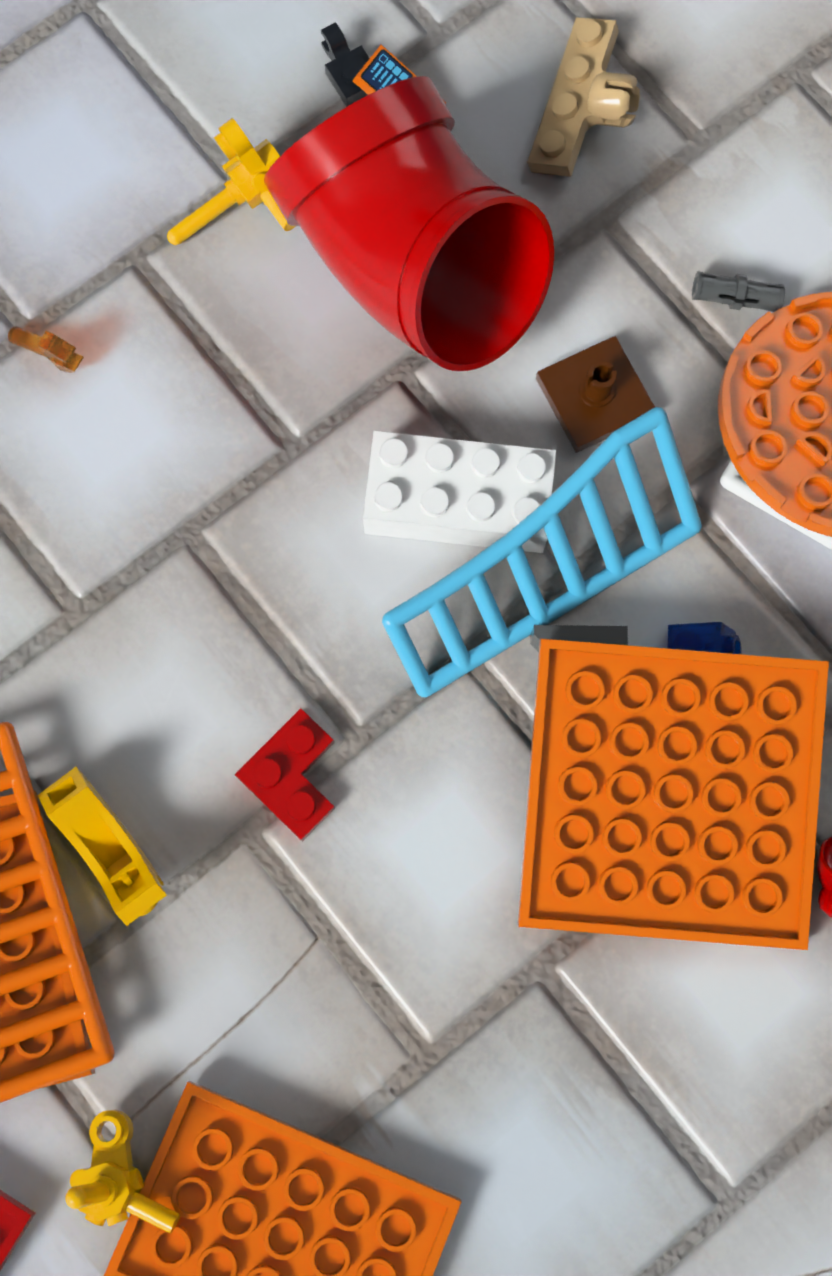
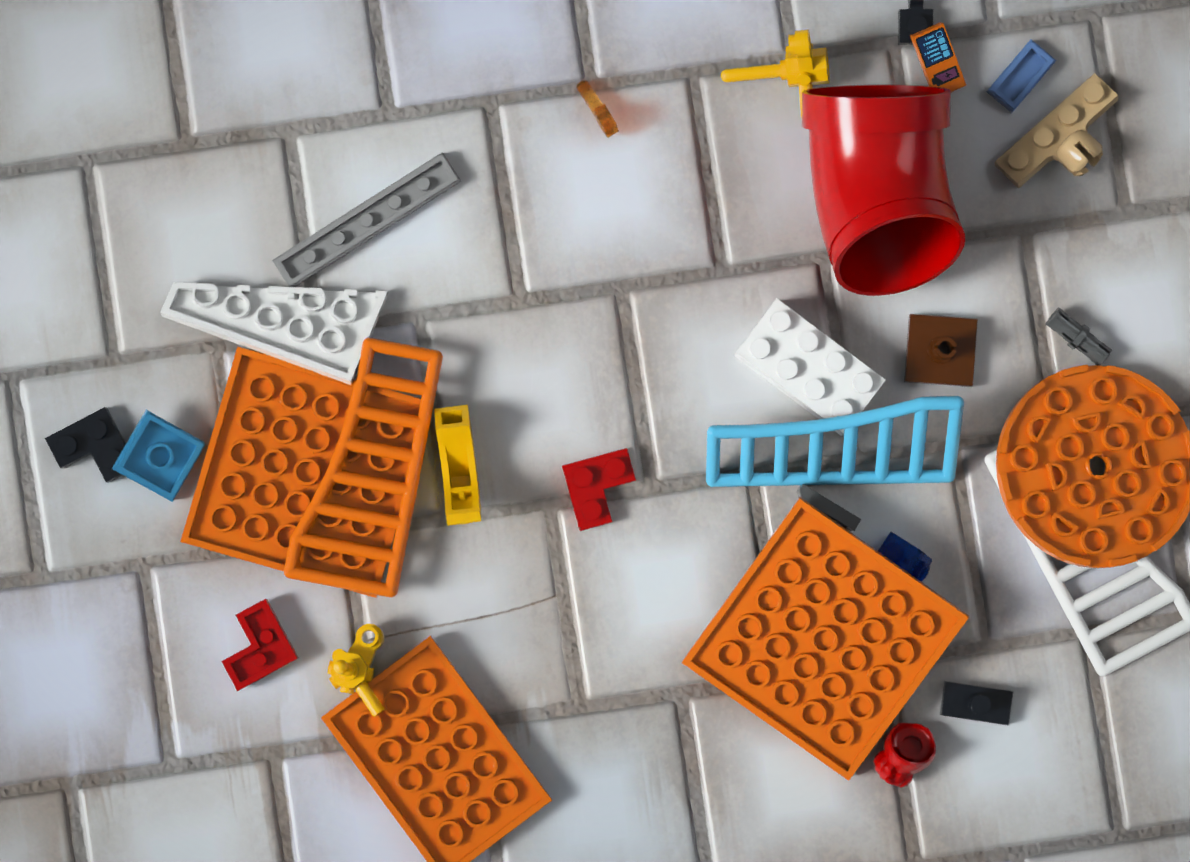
camera: 30 degrees right, 10 degrees up
(499, 65) = (1021, 76): none -> medium blue tile

